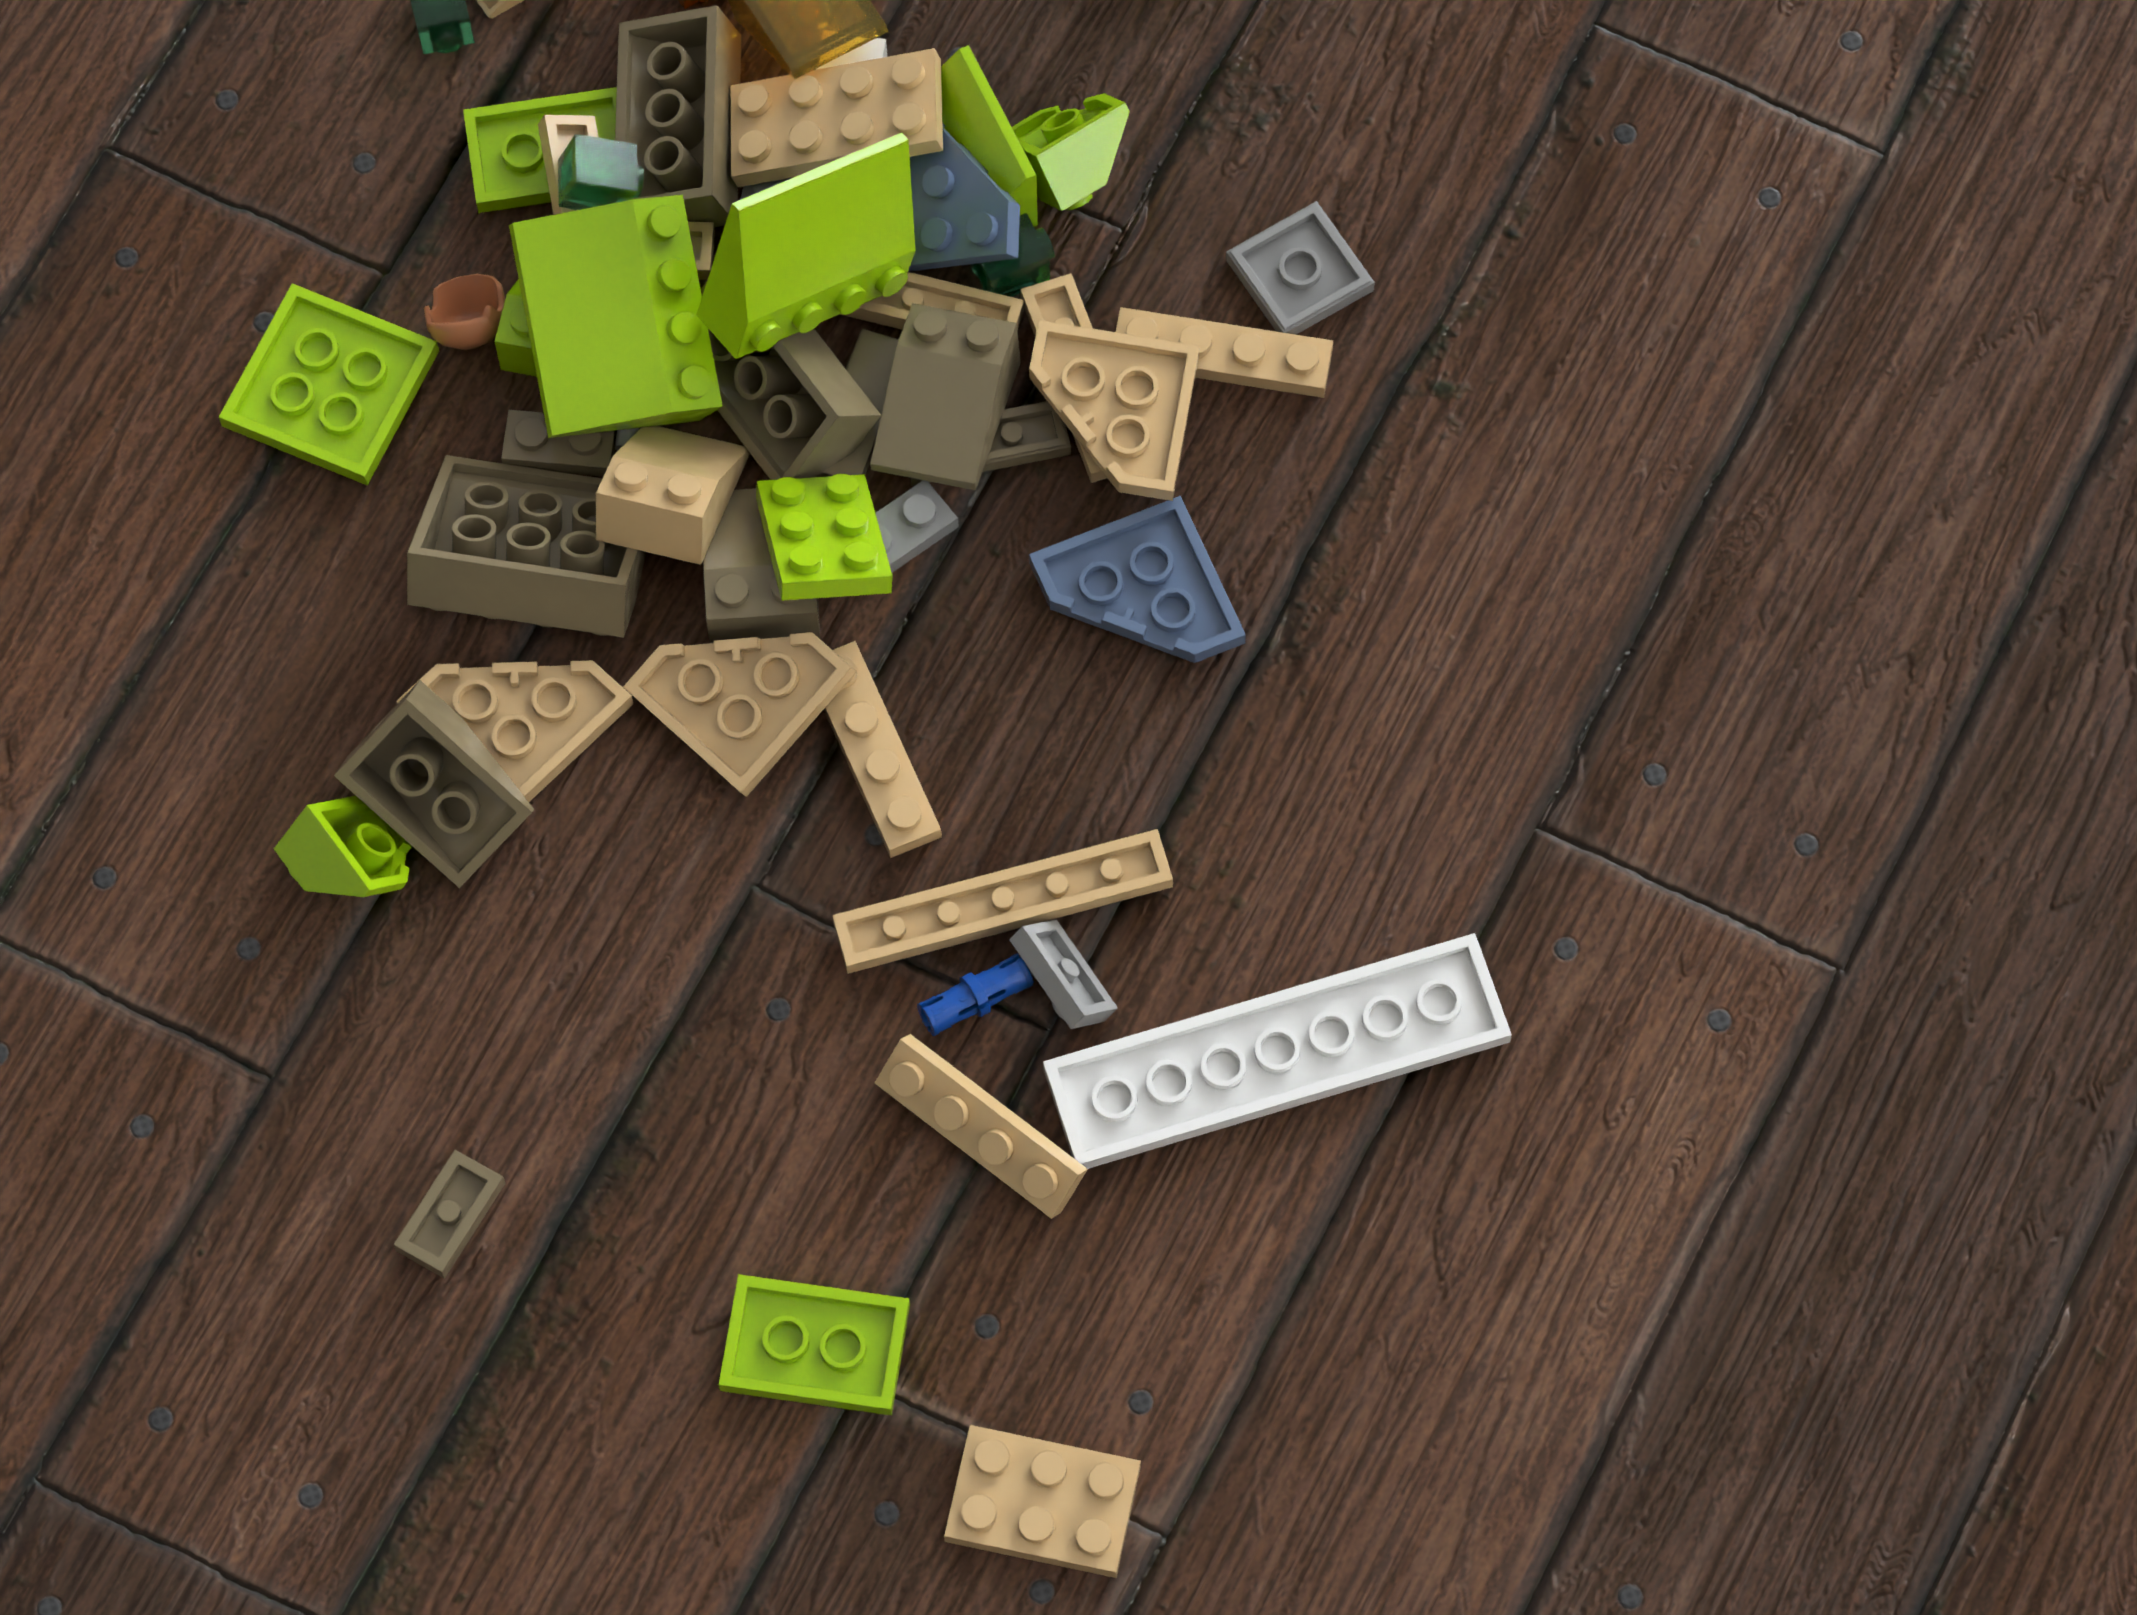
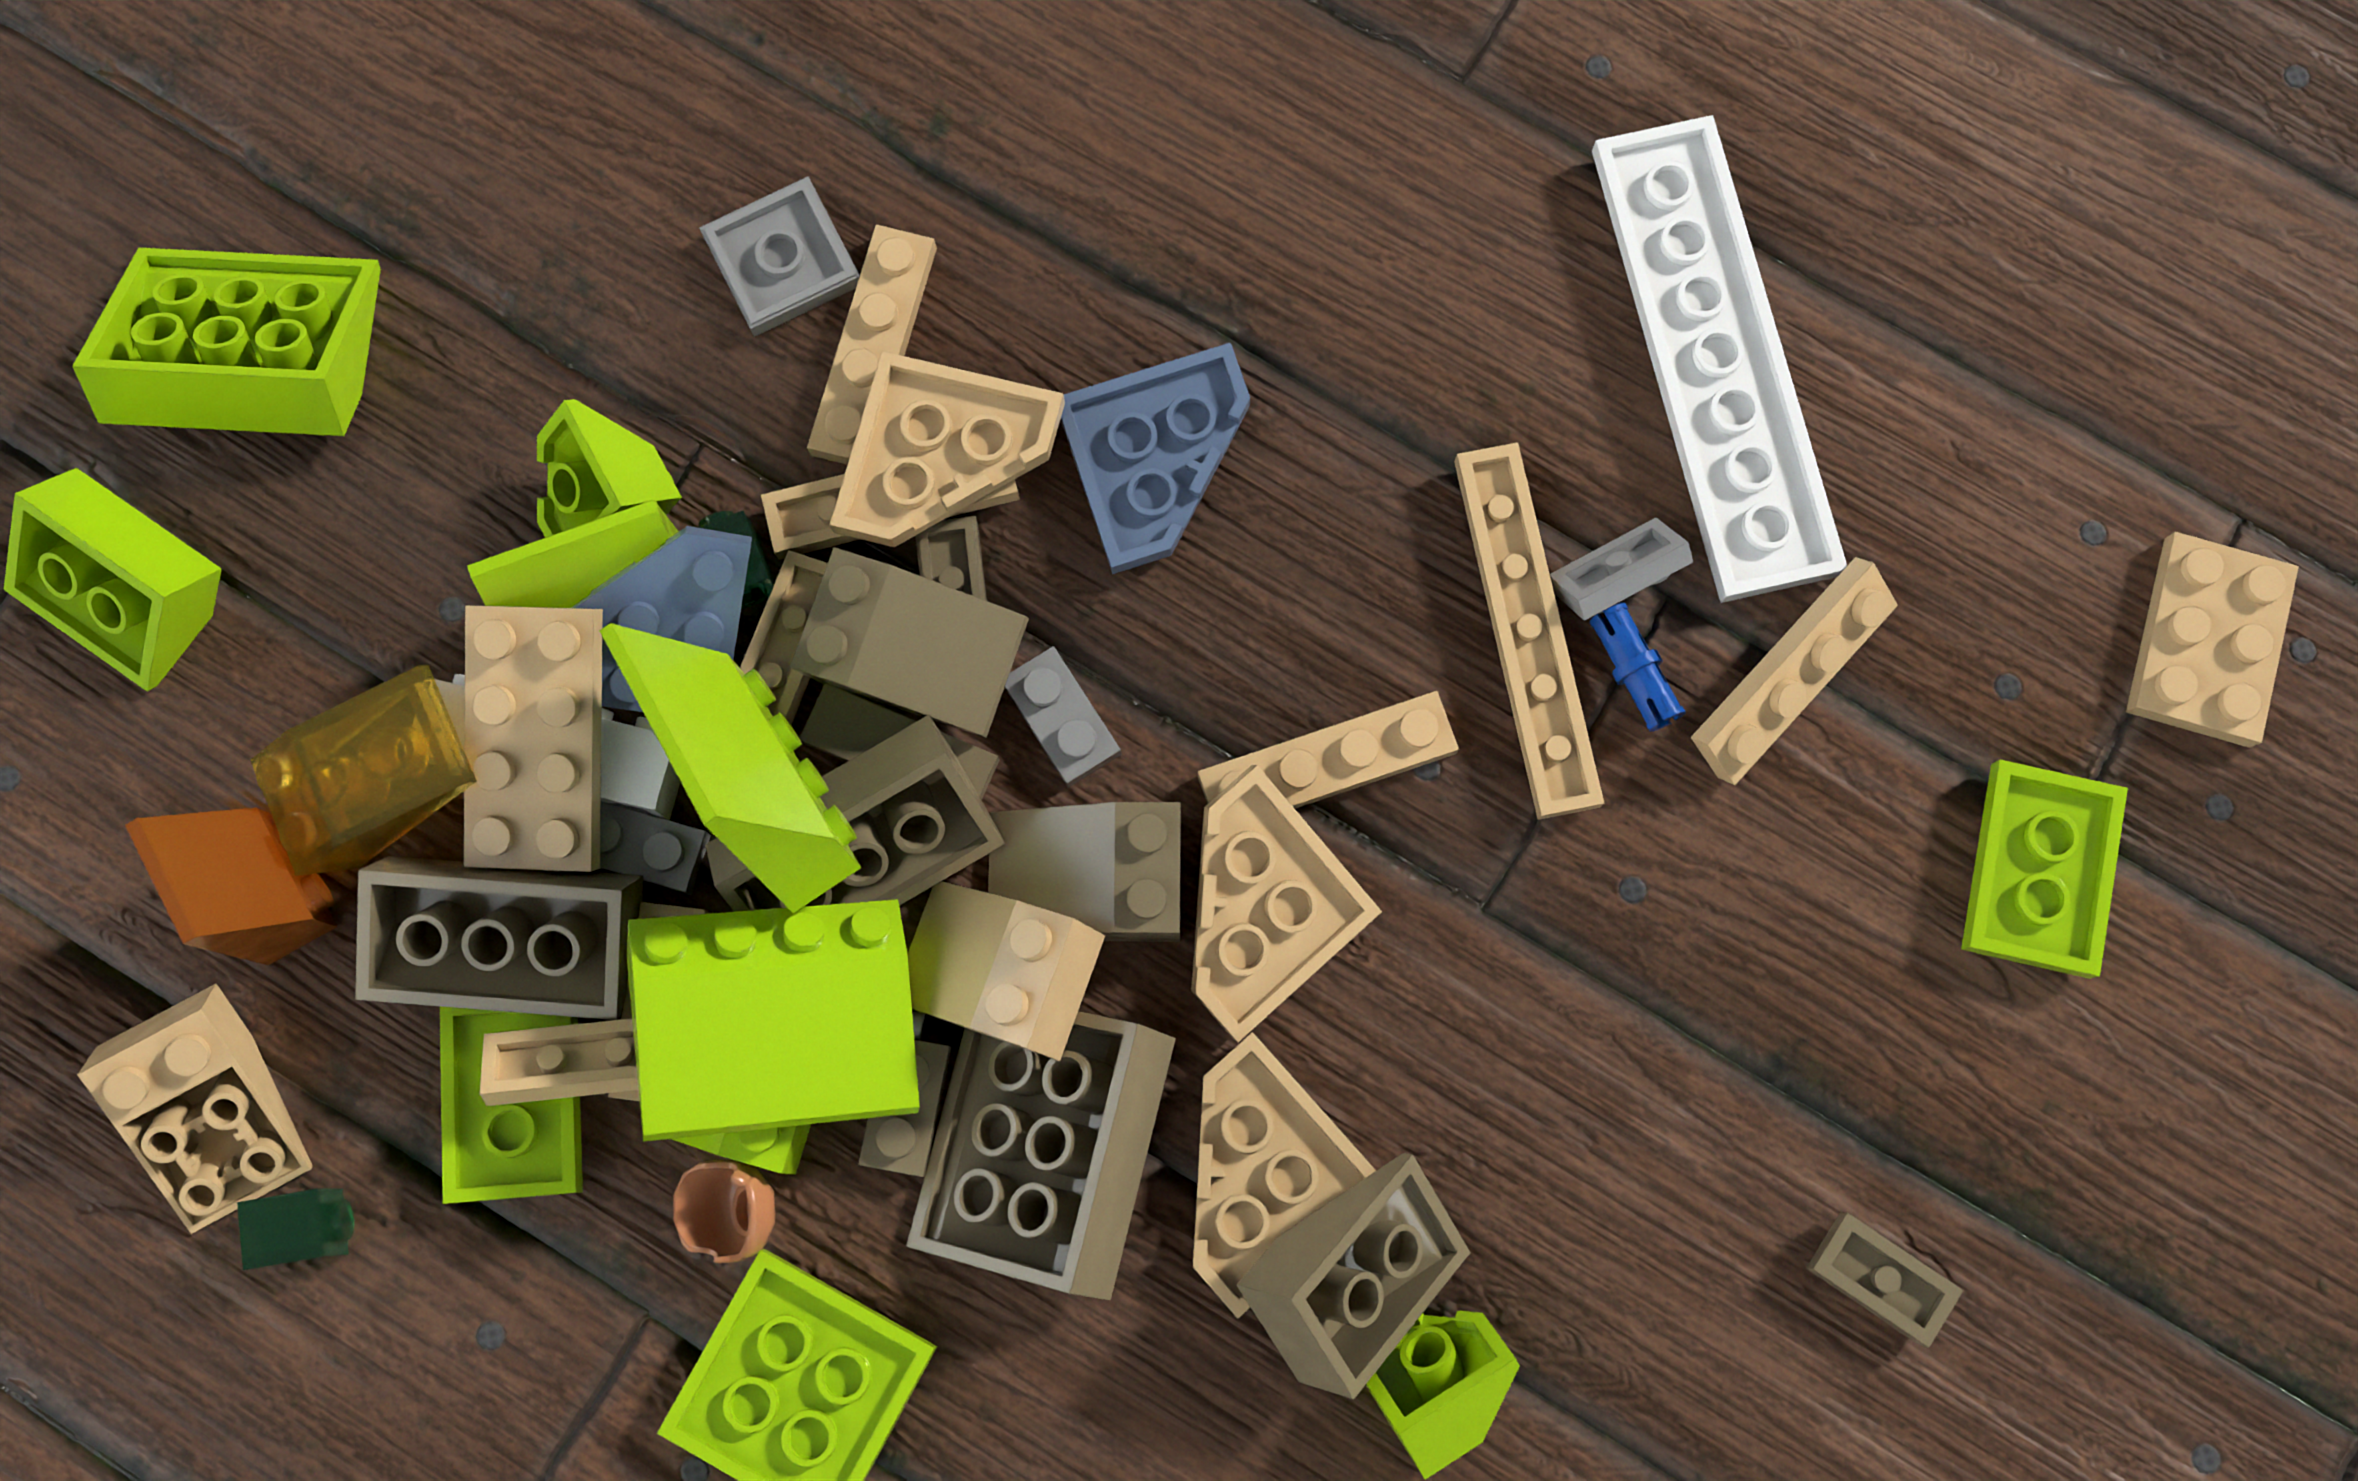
camera: 85 degrees left, 10 degrees up
(598, 173) = (577, 1028): clear green brick -> none
(823, 537) = (1085, 789): lime plate -> none

